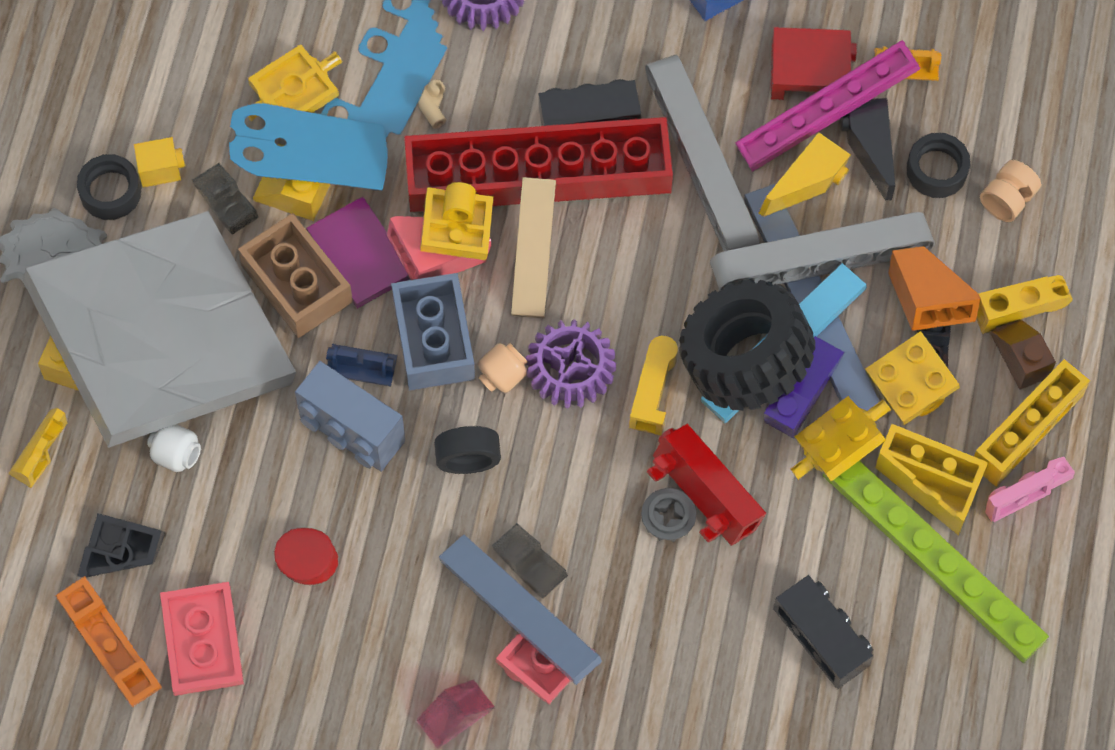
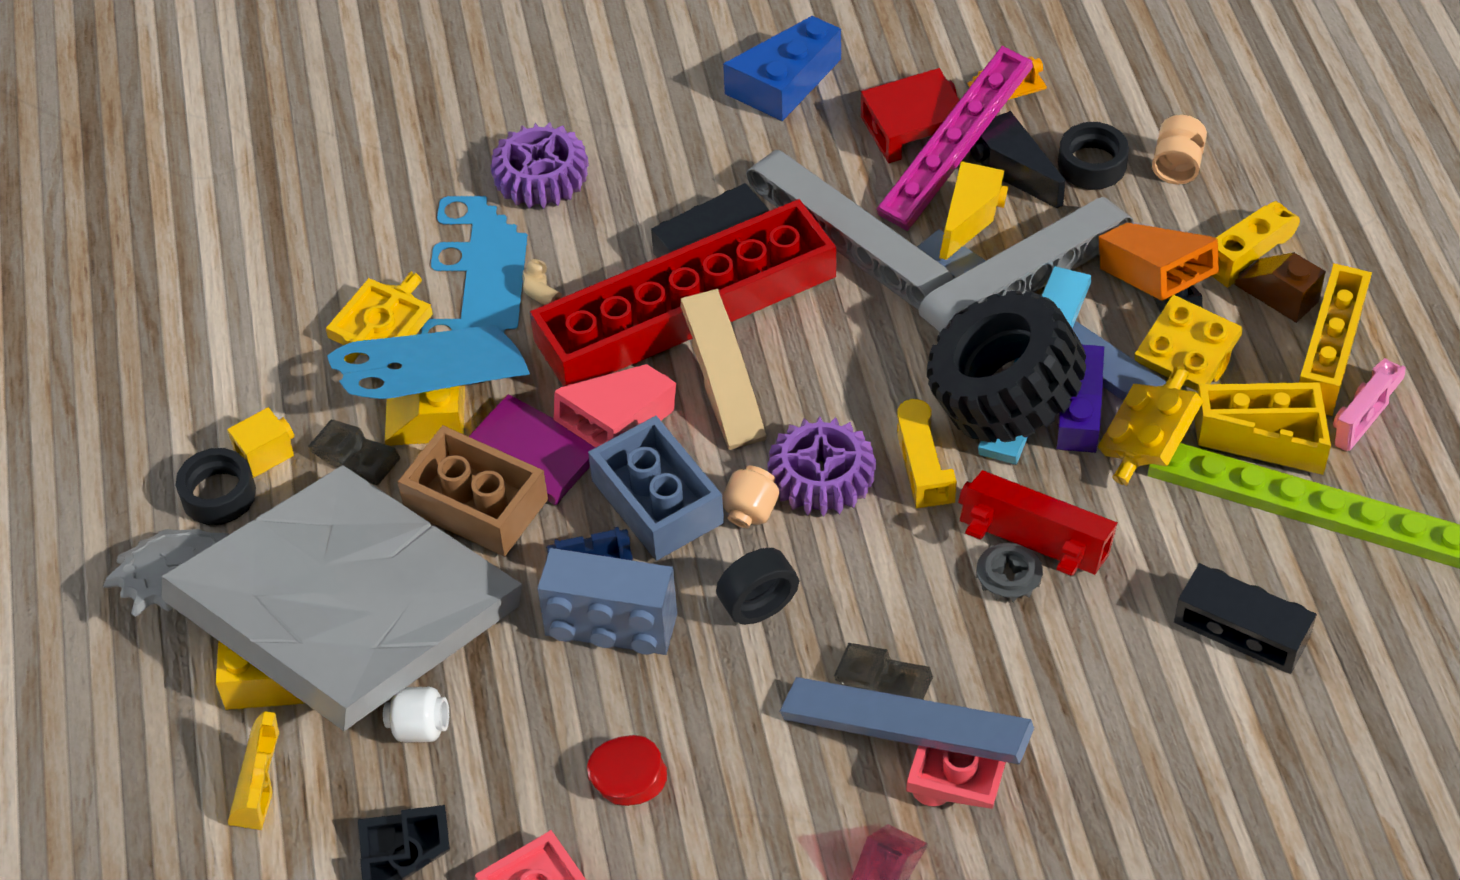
camera: 20 degrees left, 15 degrees down
(456, 222) = (630, 366): yellow plate -> none

